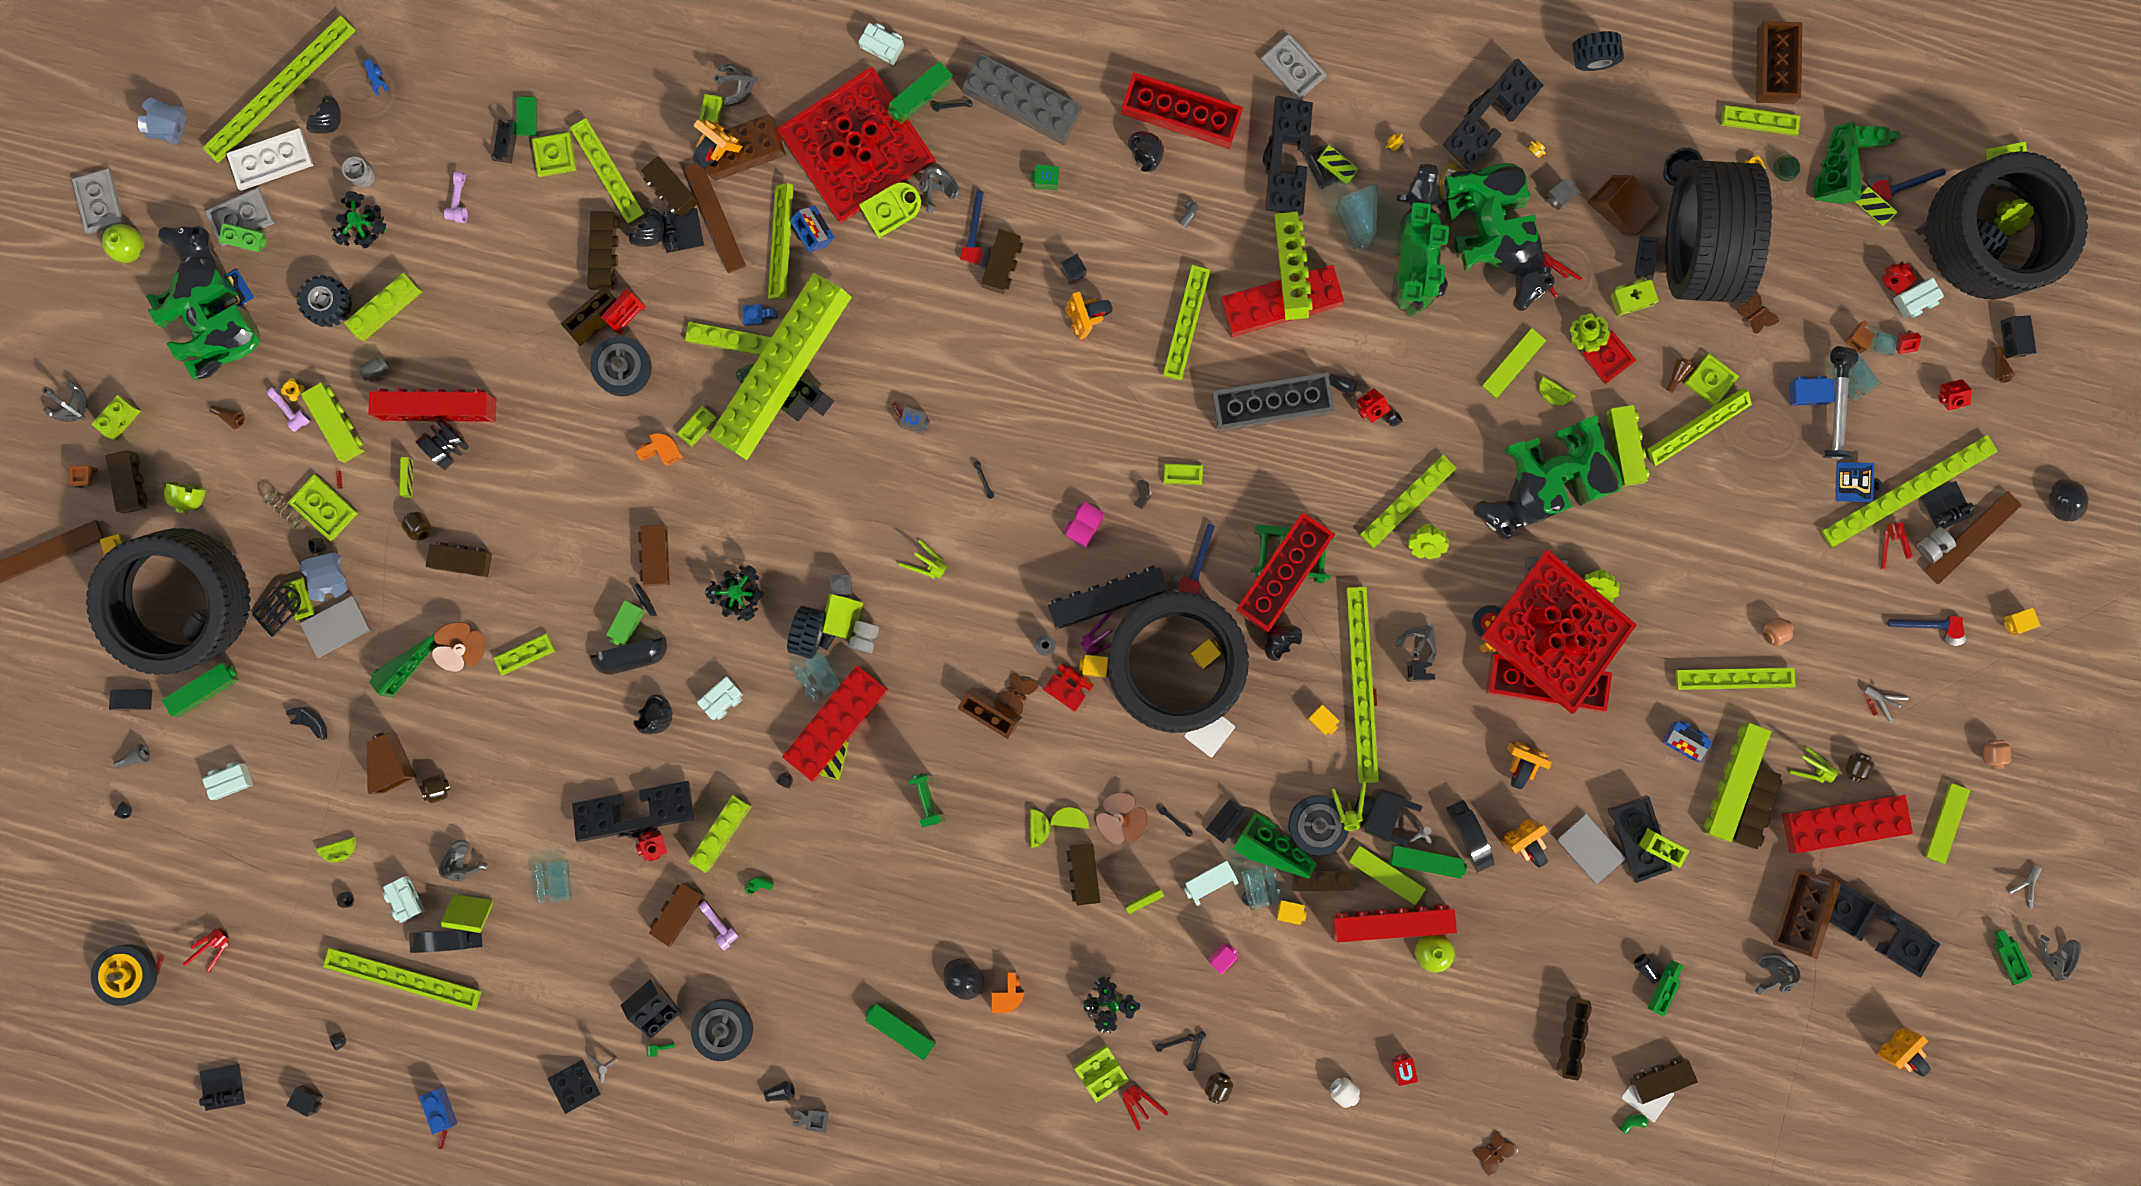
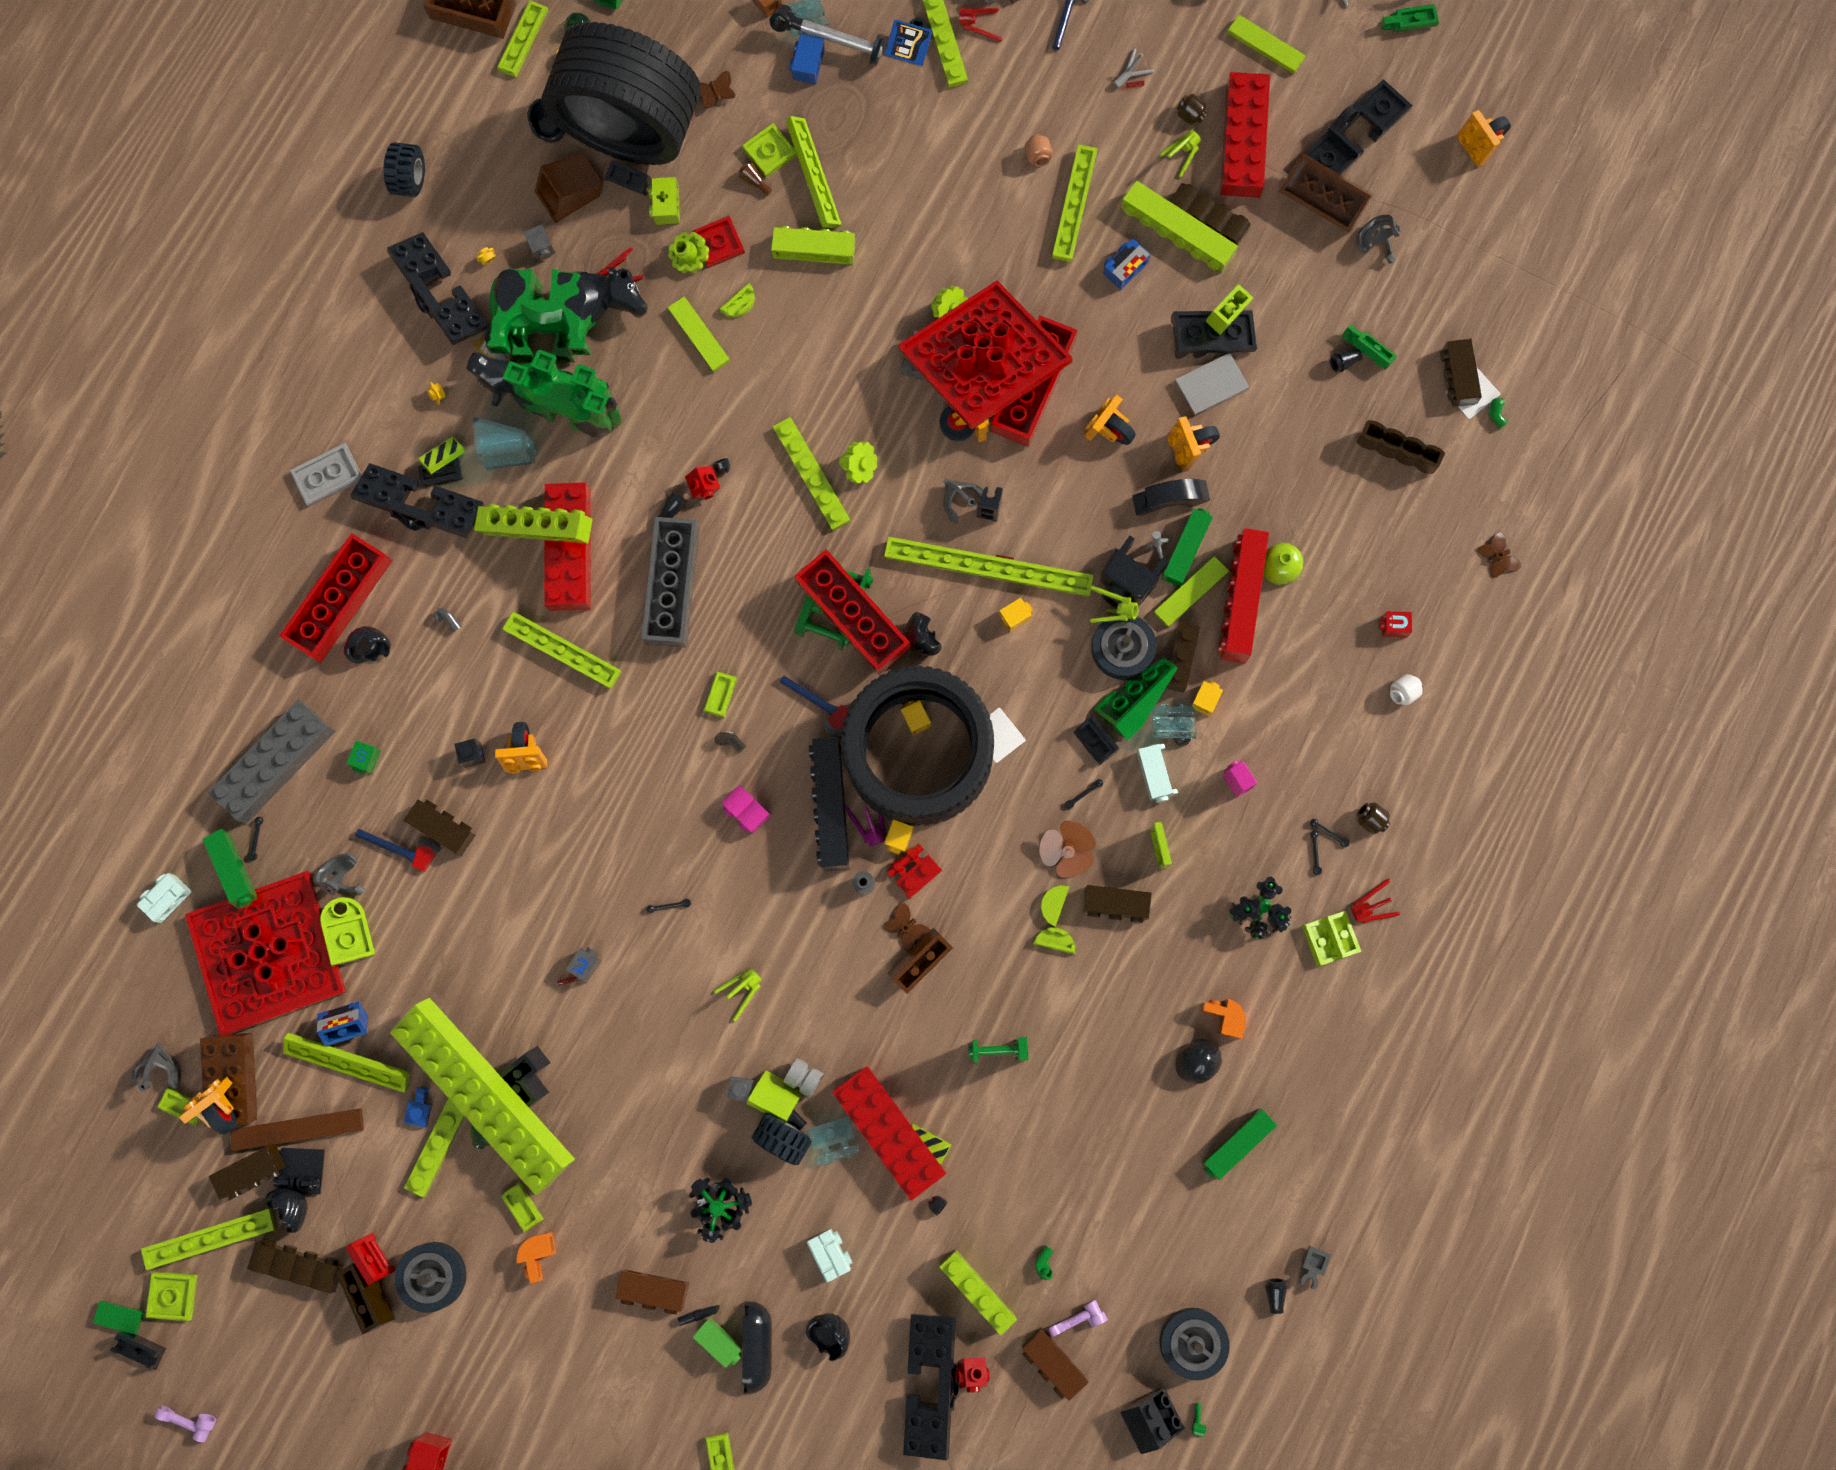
camera: 70 degrees left, 5 degrees down
(1539, 481) = (828, 334): animal -> none

